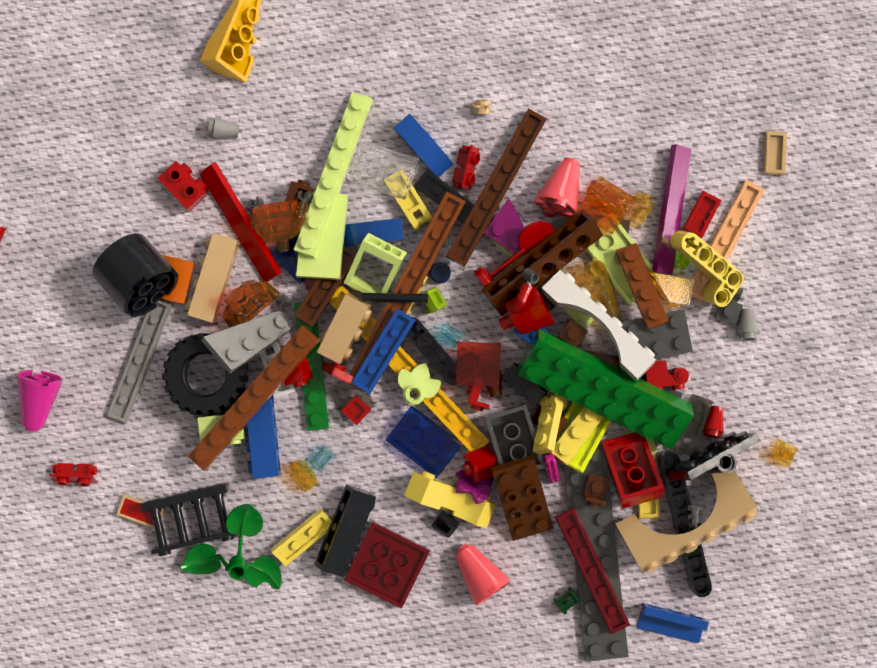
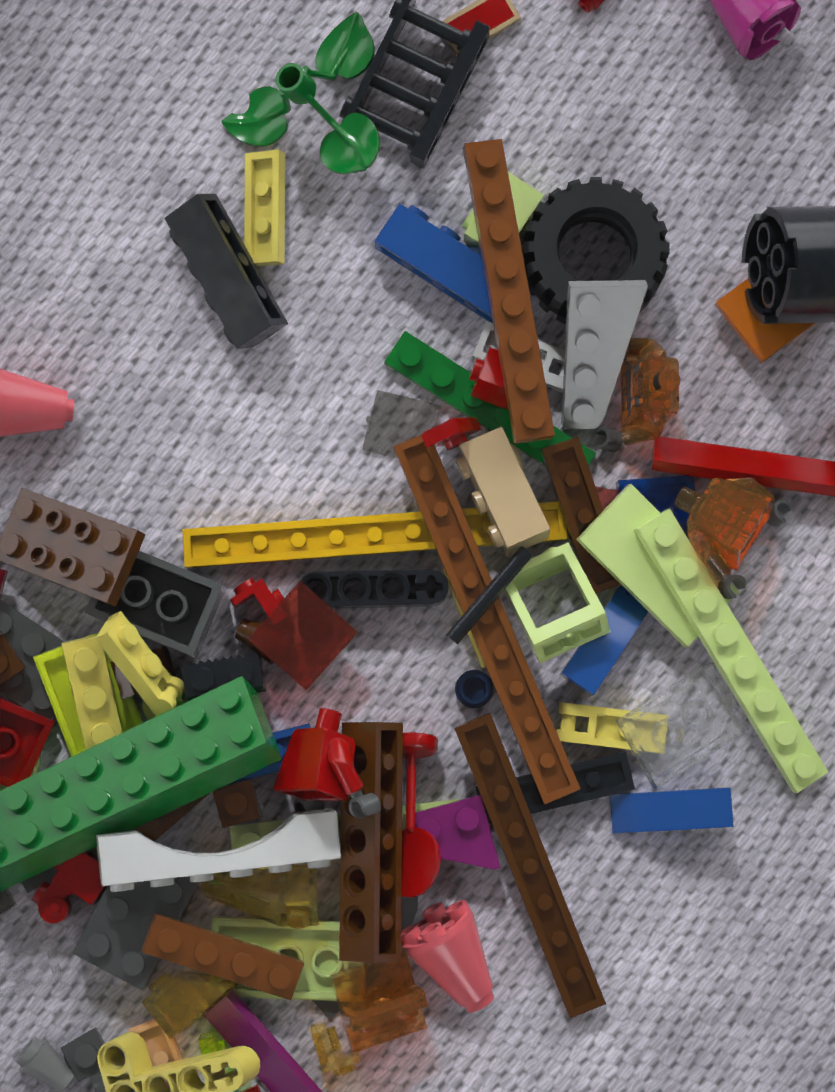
camera: 130 degrees right, 5 degrees down
(138, 362) = (685, 180): light grey tile -> none
(213, 278) = (719, 370): tan brick -> none
(295, 187) = (755, 583): reddish brown bracket -> none
(303, 475) = (349, 275): clear yellow brick -> none
(321, 458) = (350, 319): clear light blue bush -> none
(356, 410) = (378, 418): red plate -> none
(383, 351) = (427, 518): blue plate -> none
(387, 564) = (132, 291): dark red plate -> none
(420, 381) = (344, 537): yellowish green plate -> none
(424, 441) = (258, 476): clear blue plate -> none
(435, 301) = (440, 649): lime tile -> none
(440, 495) = (171, 436): light yellow brick -> none
(445, 524) = (121, 414): black plate -> none
(450, 334) = (375, 633): clear light blue bush -> none
(469, 158) = (602, 862): red hinge -> none
(479, 463) = (165, 526): red brick -> none
(479, 490) = (146, 493): magenta plate -> none
(481, 106) = (661, 939): tan plate -> none
(551, 468) = (75, 620): dark pink axle -> none

